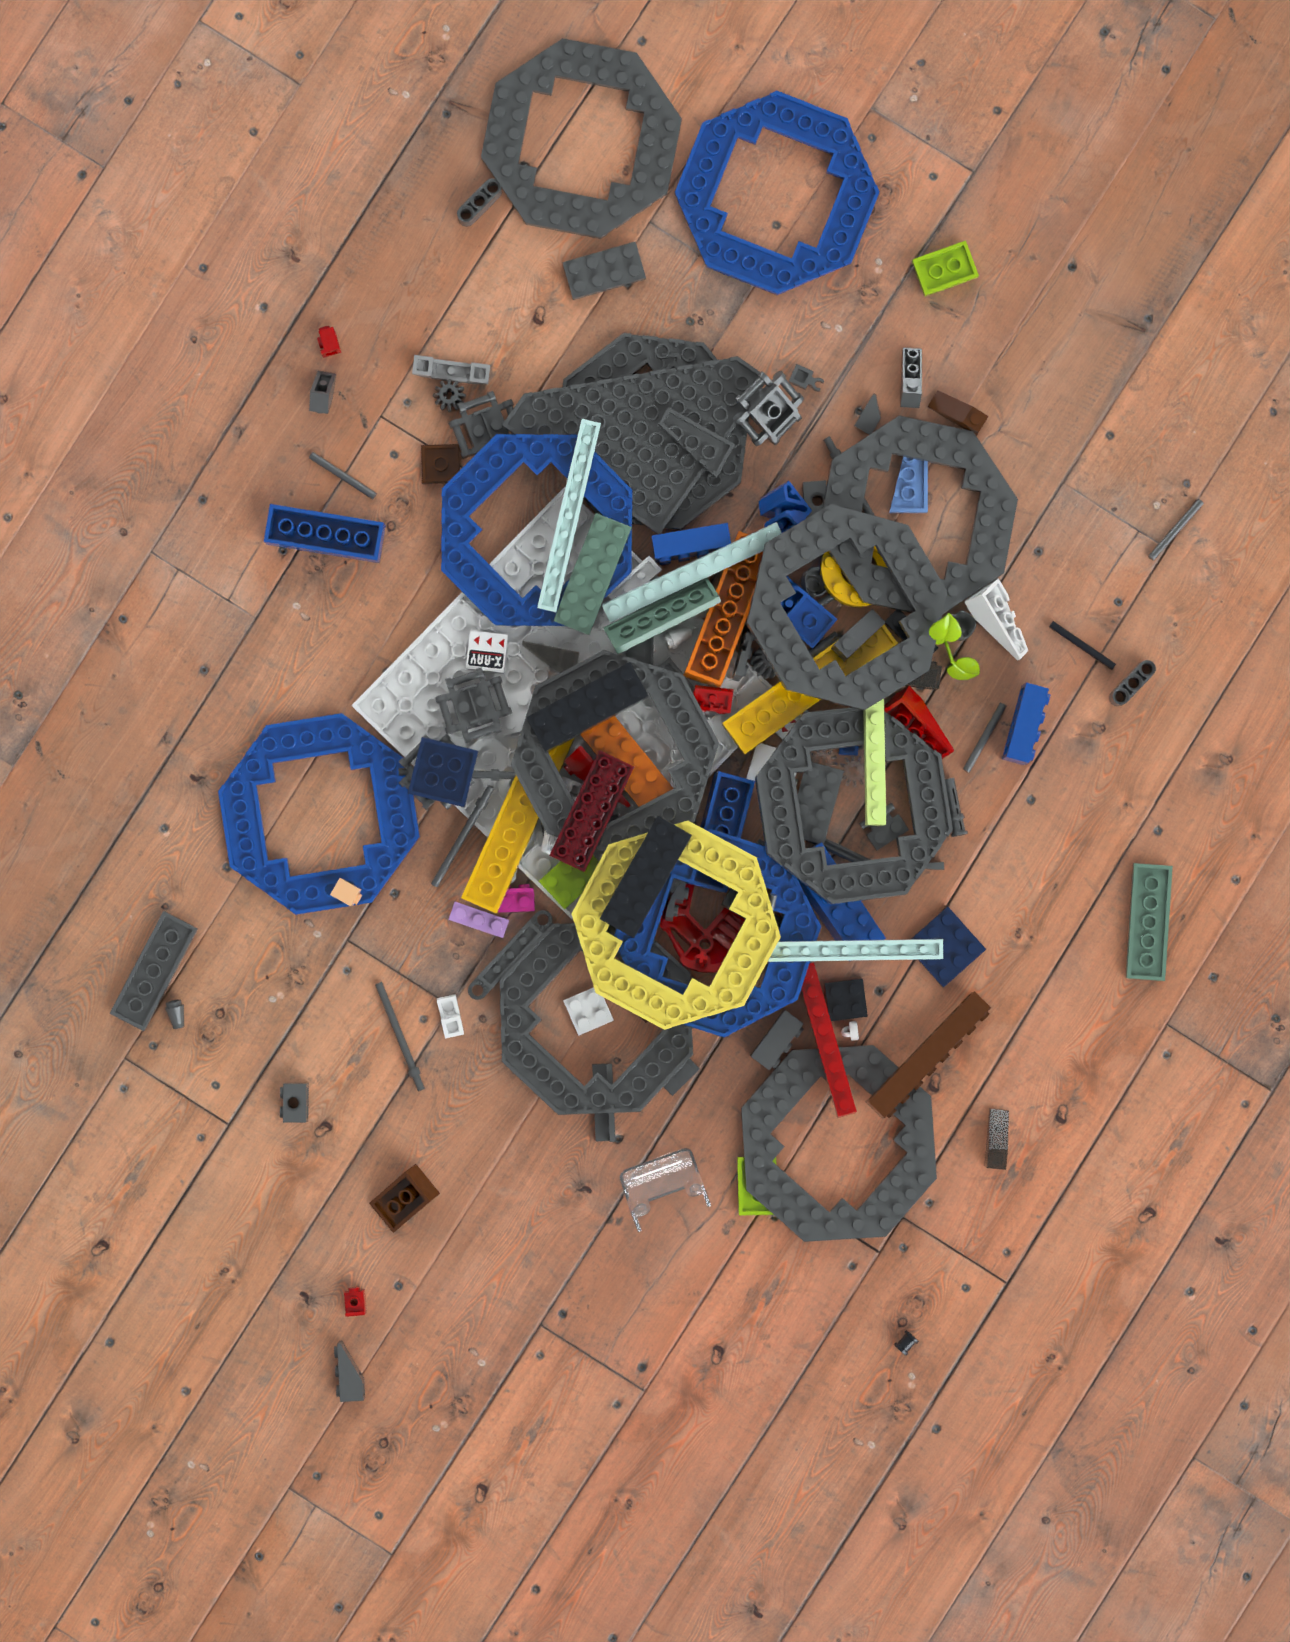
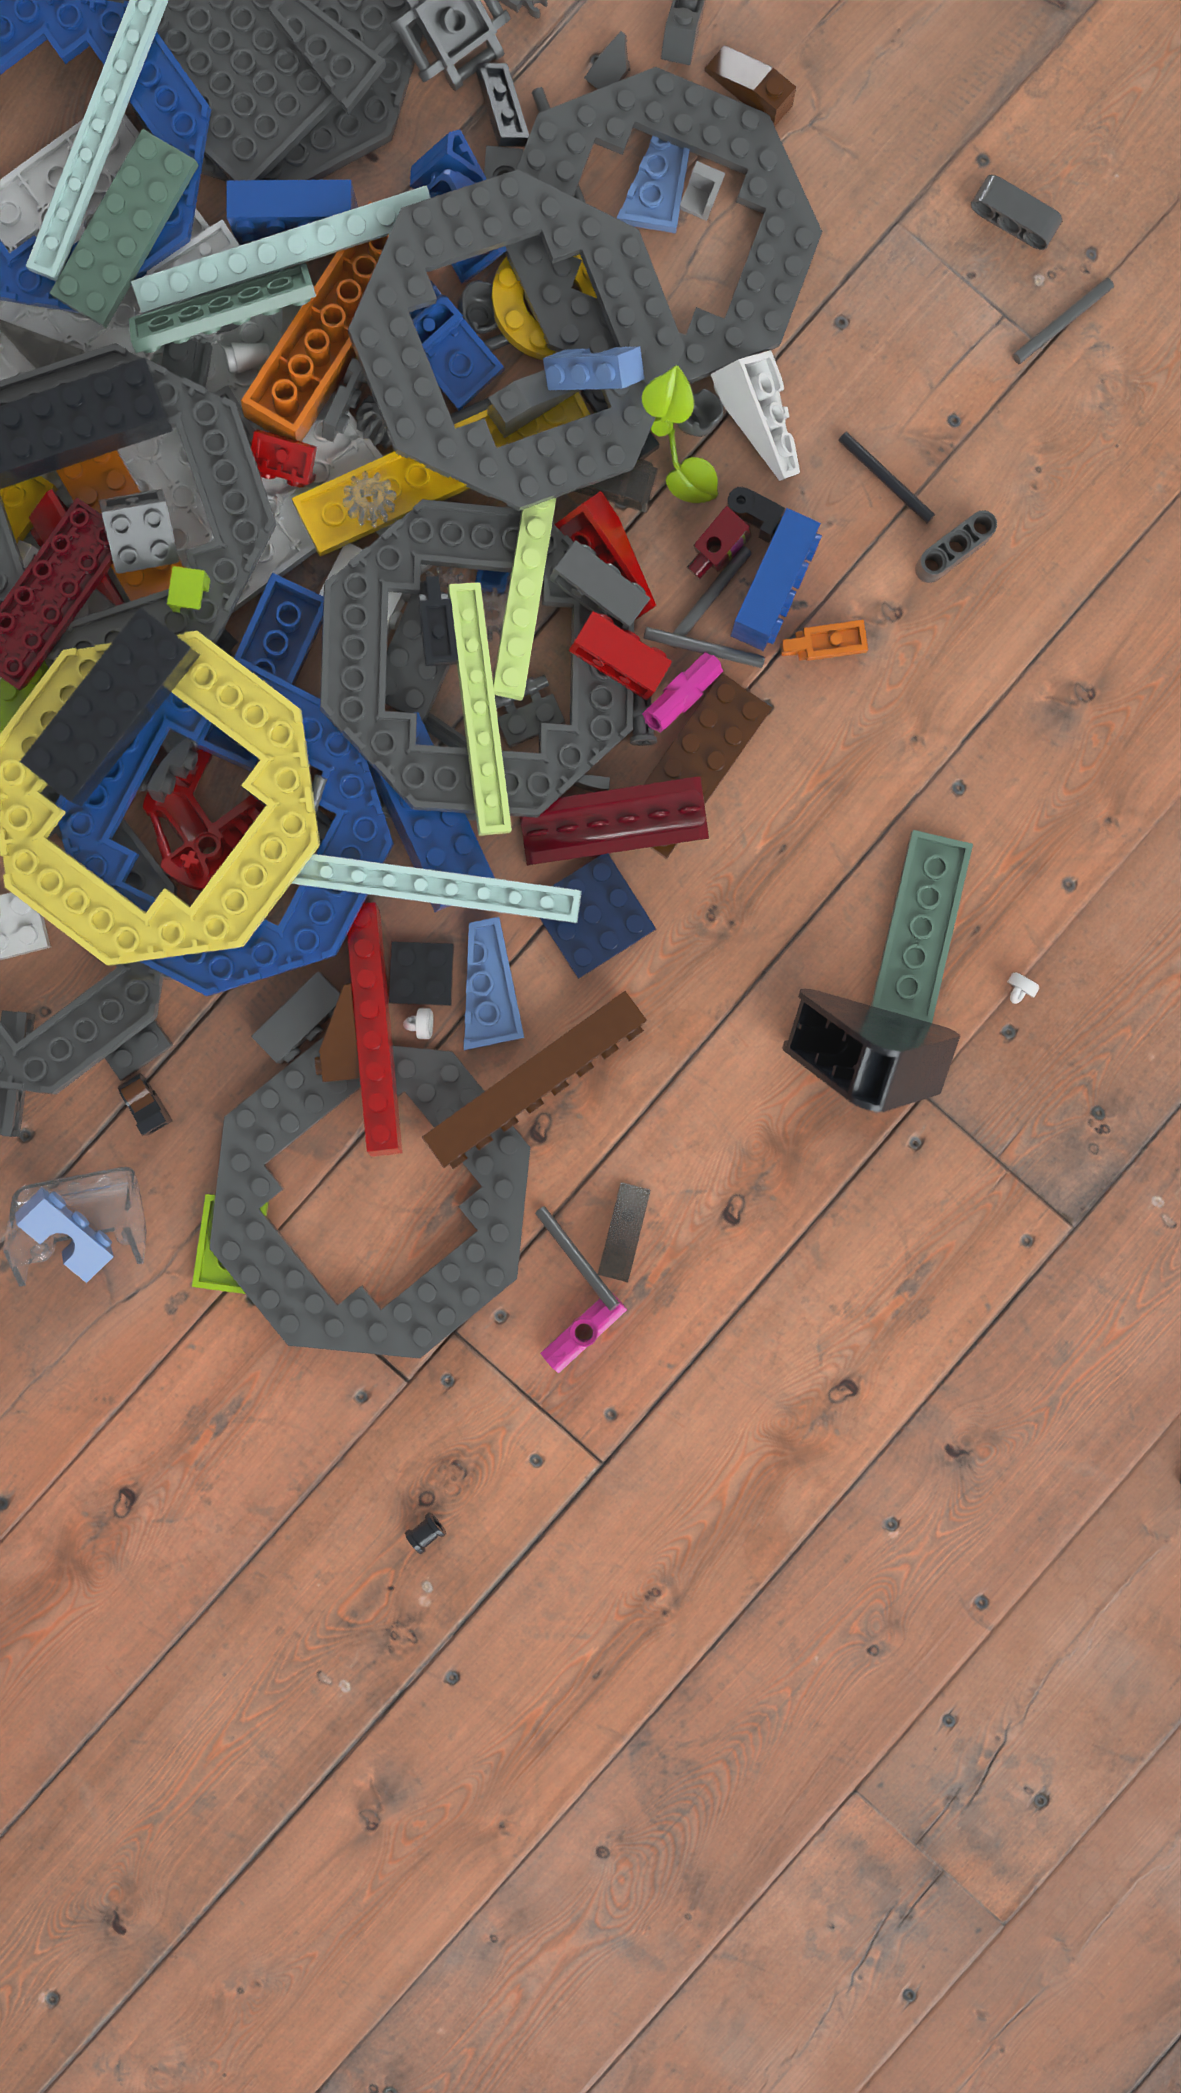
camera: 10 degrees right, 0 degrees up
(640, 763) = (139, 531): none -> bracket
(647, 1187) = (47, 1215): none -> arch
(676, 796) = (187, 588): none -> lime panel
(690, 1108) = (144, 1105): none -> black leg
(768, 722) = (381, 496): none -> clear gear
(807, 452) = (502, 104): none -> plate
(807, 1054) = (339, 1047): none -> reddish brown slope
(827, 790) = (437, 625): none -> black hinge
(861, 837) = (479, 710): none -> yellowish green plate
(891, 1007) = (490, 994): none -> medium blue wing
(907, 620) = (586, 370): none -> medium blue arch
(919, 747) = (599, 585): none -> dark grey brick
(939, 787) = (620, 655): none -> red brick
(941, 492) = (702, 190): none -> light grey panel
(953, 888) = (617, 821): none -> dark red plate
(972, 1160) = (577, 1258): none -> dark grey bar
(974, 1214) = (569, 1346): none -> dark pink piece
(979, 801) = (682, 692): none -> dark pink piece
(987, 770) = (703, 646): none -> dark grey bar
(990, 698) = (726, 531): none -> dark red torso
(992, 844) = (711, 739): none -> reddish brown plate
(1002, 678) = (756, 511): none -> black leg
(1062, 754) = (827, 641): none -> orange hinge
(1130, 1006) = (870, 1052): none -> black brick
(1136, 467) = (1016, 212): none -> dark grey beam
(1216, 949) = (1021, 987): none -> white tile

